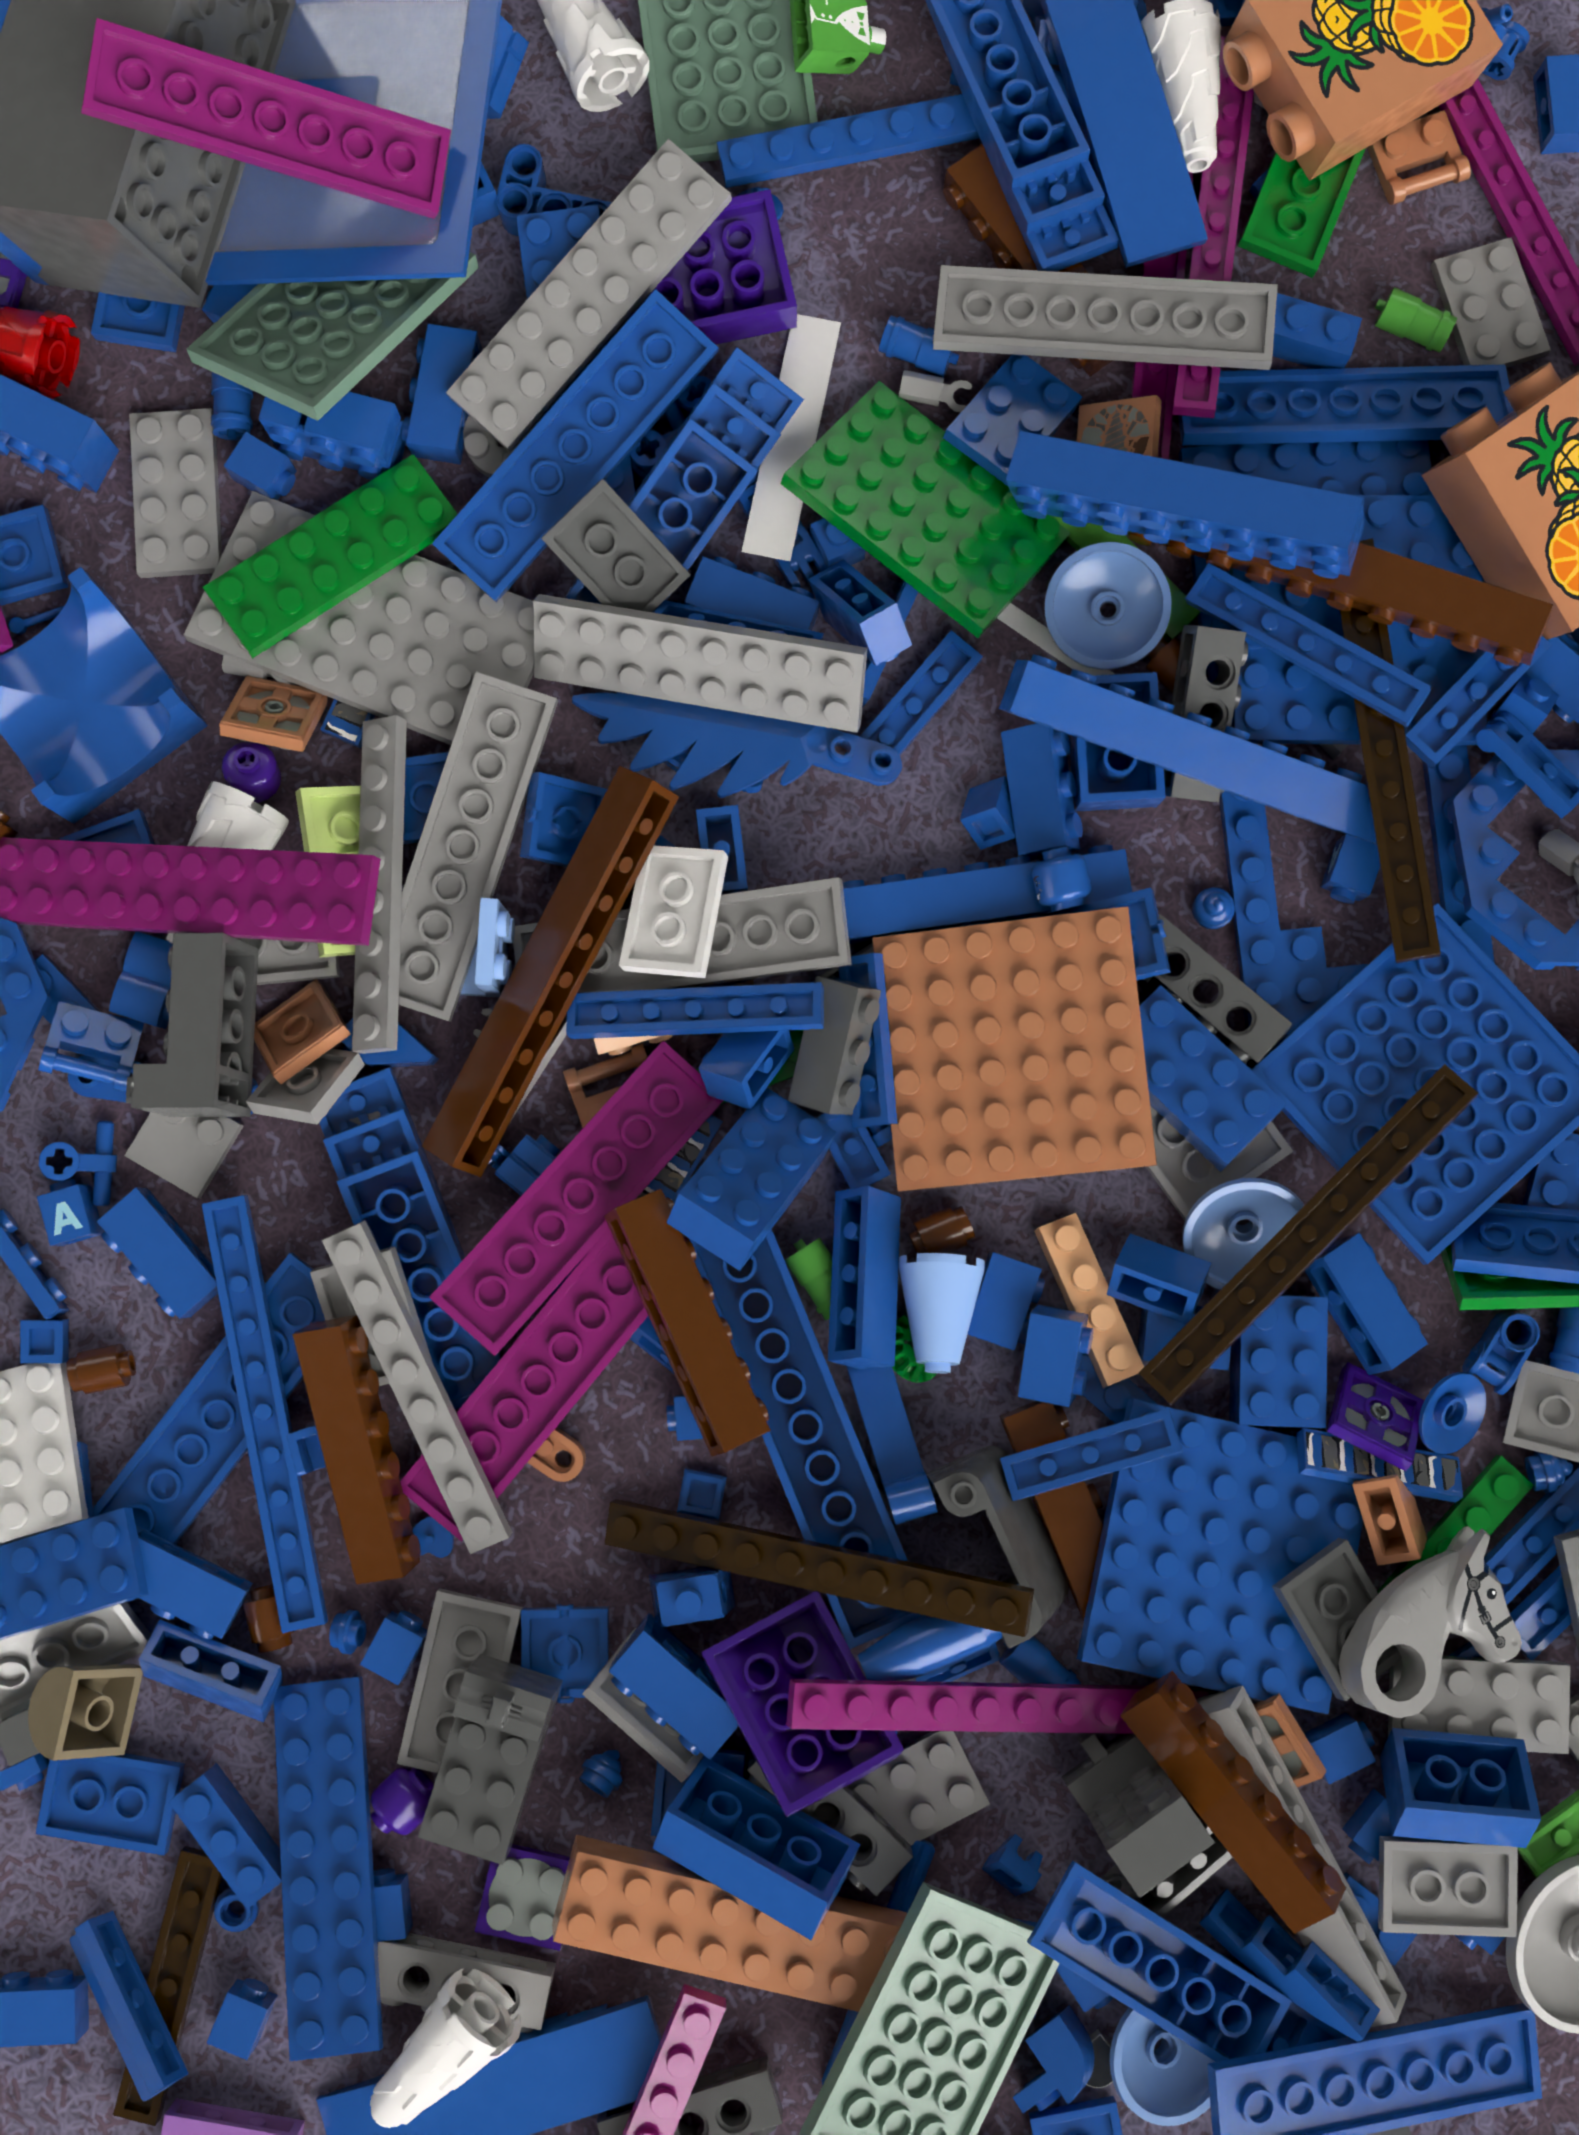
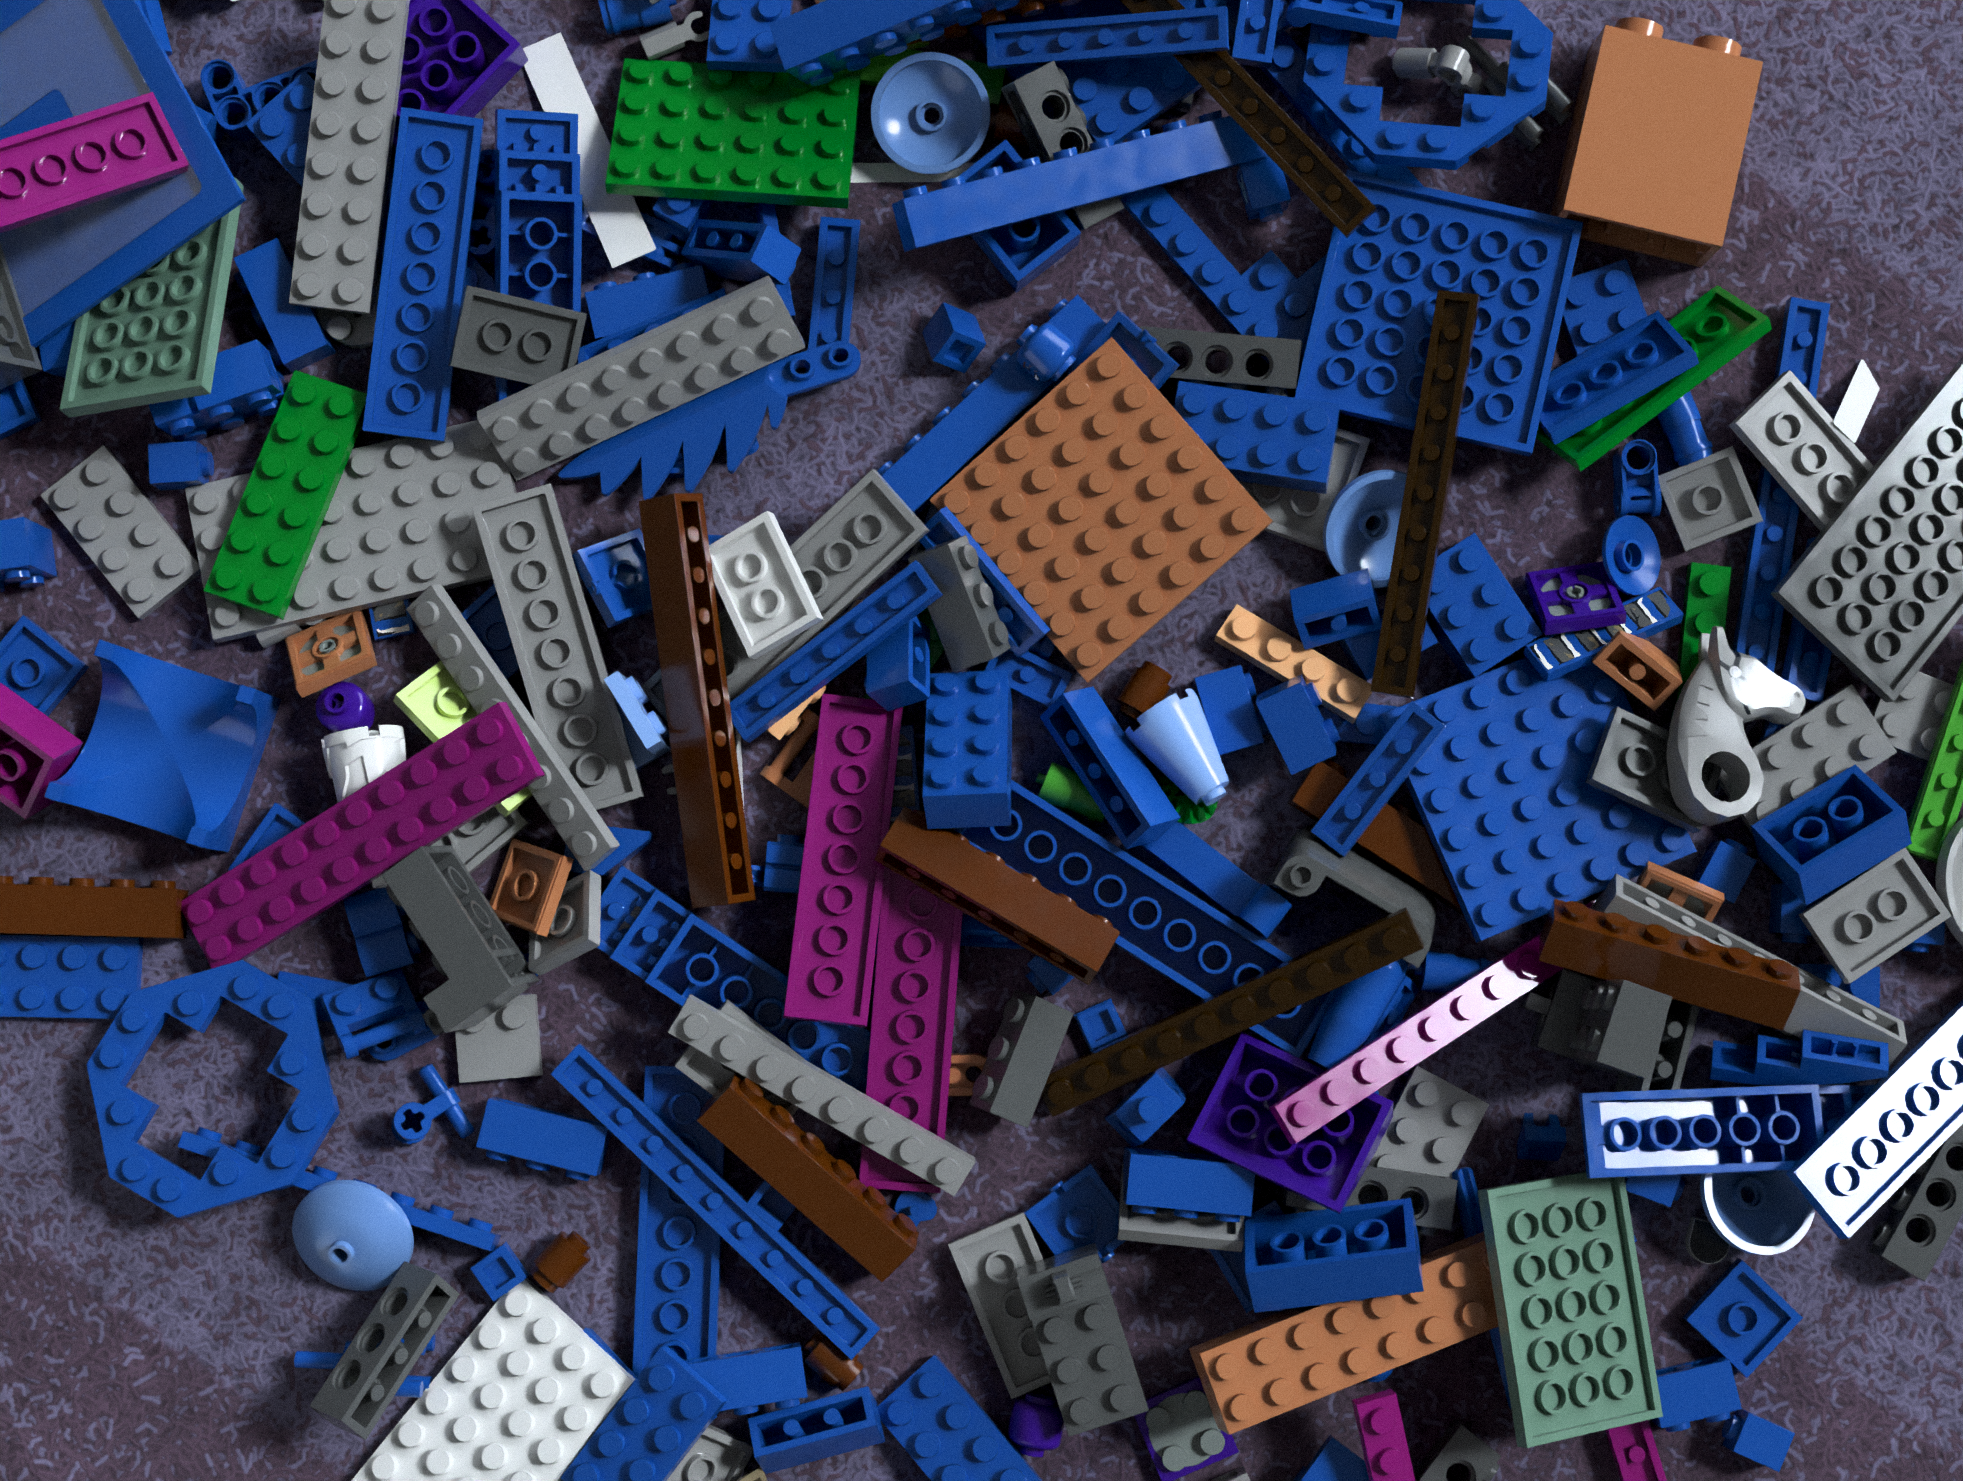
camera: 35 degrees left, 0 degrees up
(19, 626) = (72, 724): blue hinge -> none
(69, 1213) = (448, 1157): blue brick -> none
(230, 408) = (120, 434): blue piece -> none
(347, 1631) = (900, 1326): blue plate -> none
(395, 1646) = (946, 1309): blue brick -> none
(602, 1773) = (1175, 1293): blue plate -> none
(610, 1475) = (1020, 1058): none -> dark grey brick
(721, 830) = (752, 497): blue brick -> none
(1041, 790) = (979, 293): blue brick -> none
(1067, 2061) = (1681, 1251): blue brick -> none
(1213, 908) = (1177, 293): blue plate -> none
(1365, 1305) = (1507, 518): blue brick -> none
(1546, 1471) = (1733, 549): blue plate -> none

